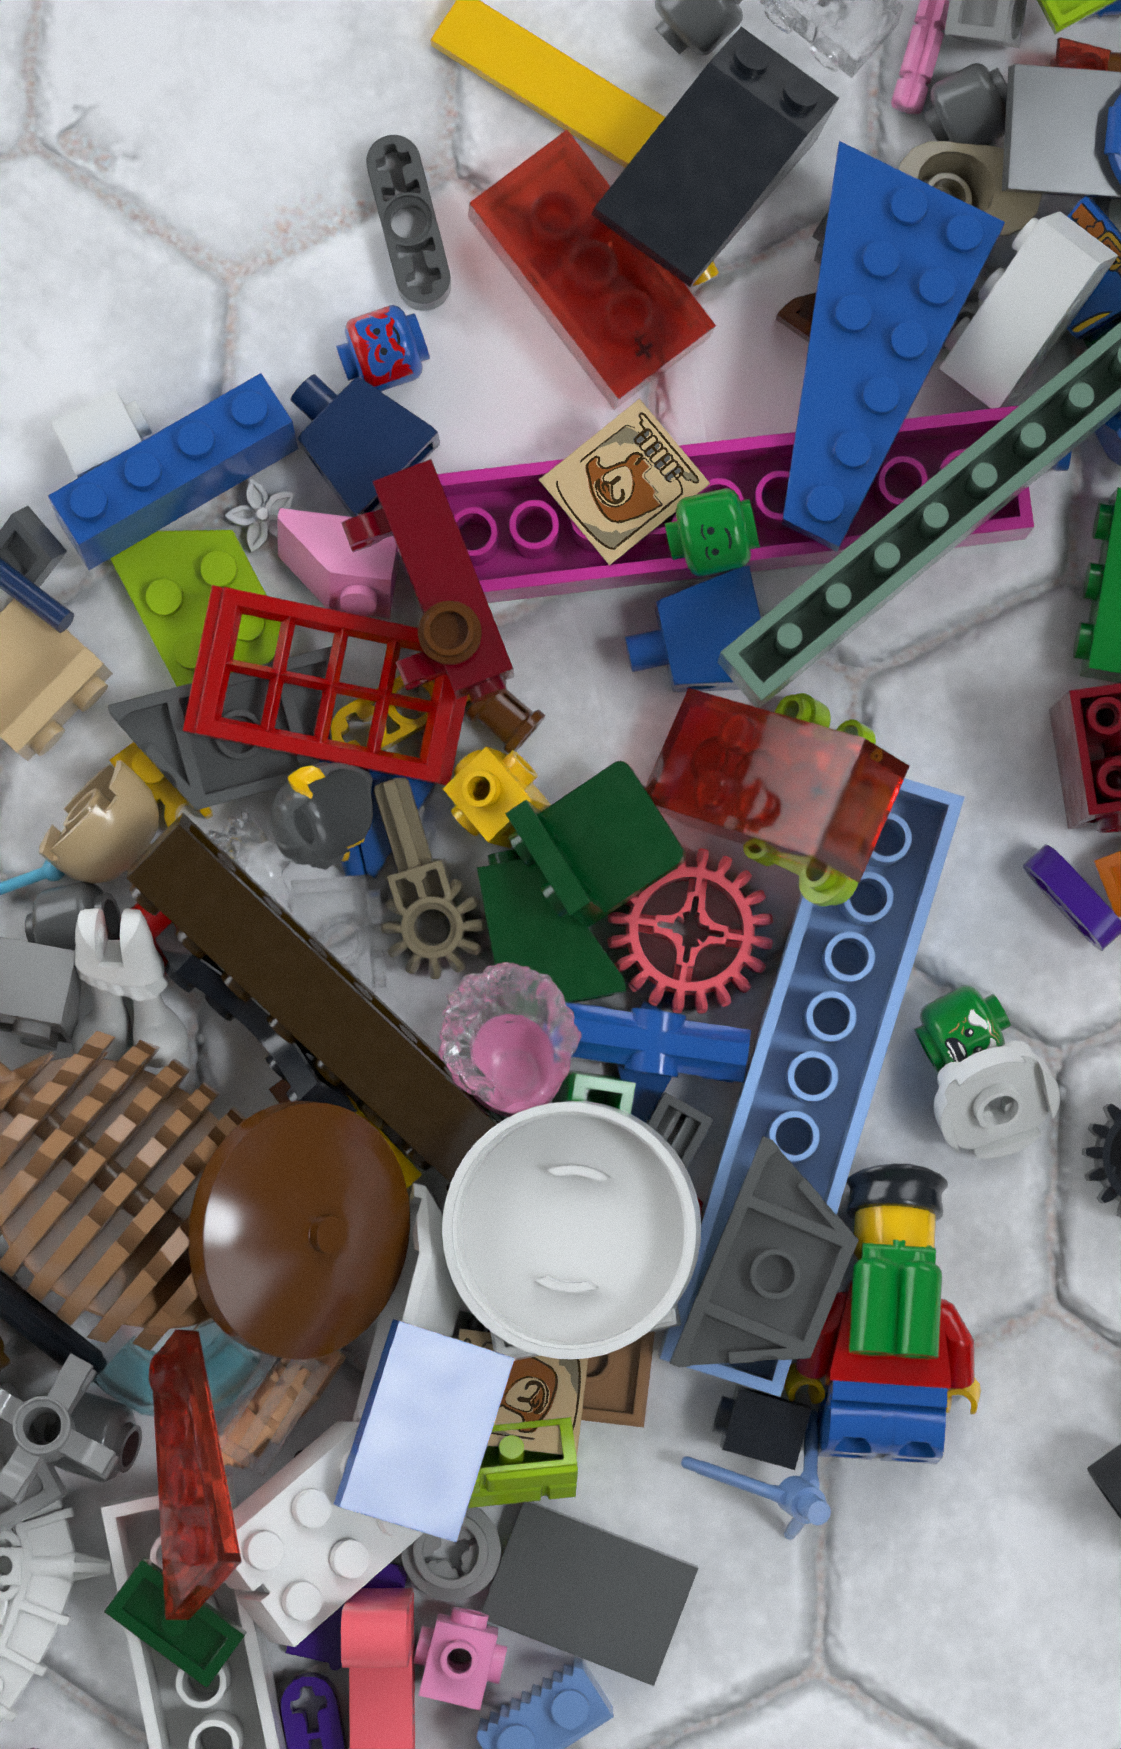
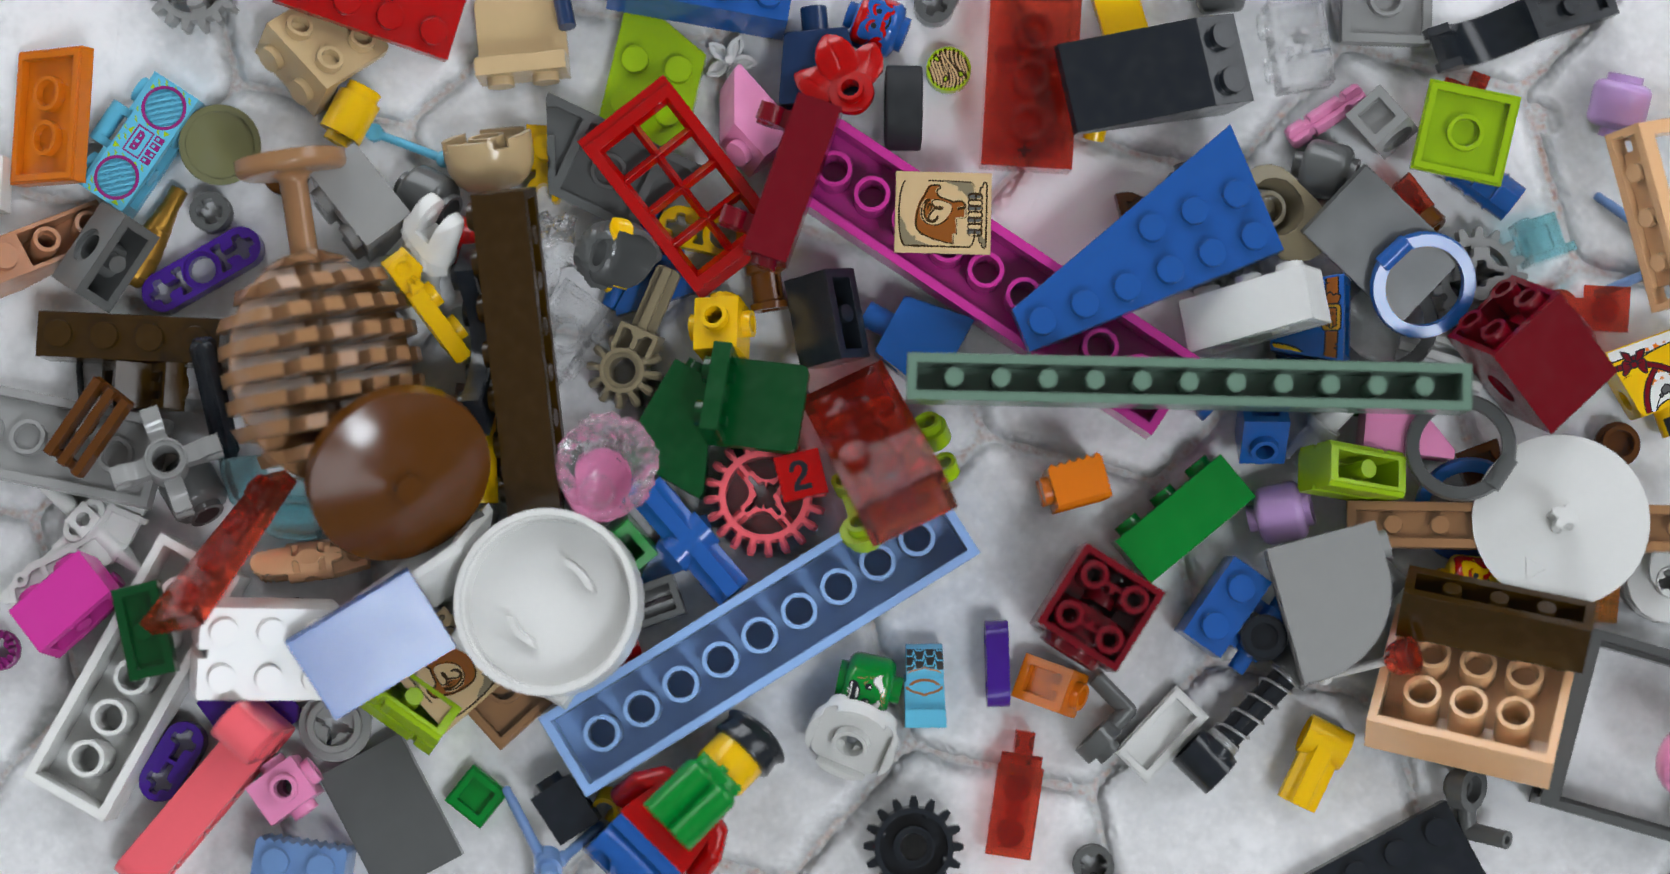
camera: 40 degrees right, 0 degrees up
(65, 1666) = (66, 603): none -> dark pink brick
(170, 1030) = (425, 301): none -> yellow hinge
(242, 1451) = (264, 569): clear tile -> none
(390, 421) = (839, 69): none -> red plate
(449, 632) = (766, 212): reddish brown plate -> none
(487, 410) = (903, 108): none -> black tyre
(496, 334) = (948, 70): none -> tile
(595, 693) = (827, 318): none -> black brick
(659, 1495) = (476, 796): none -> green tile
(711, 876) = (801, 475): none -> red tile
(713, 532) = (965, 282): green head -> none
(769, 1271) = (638, 721): dark grey wing -> none
(996, 645) = (1074, 484): none -> orange brick
(1021, 985) = (924, 686): none -> medium azure leg

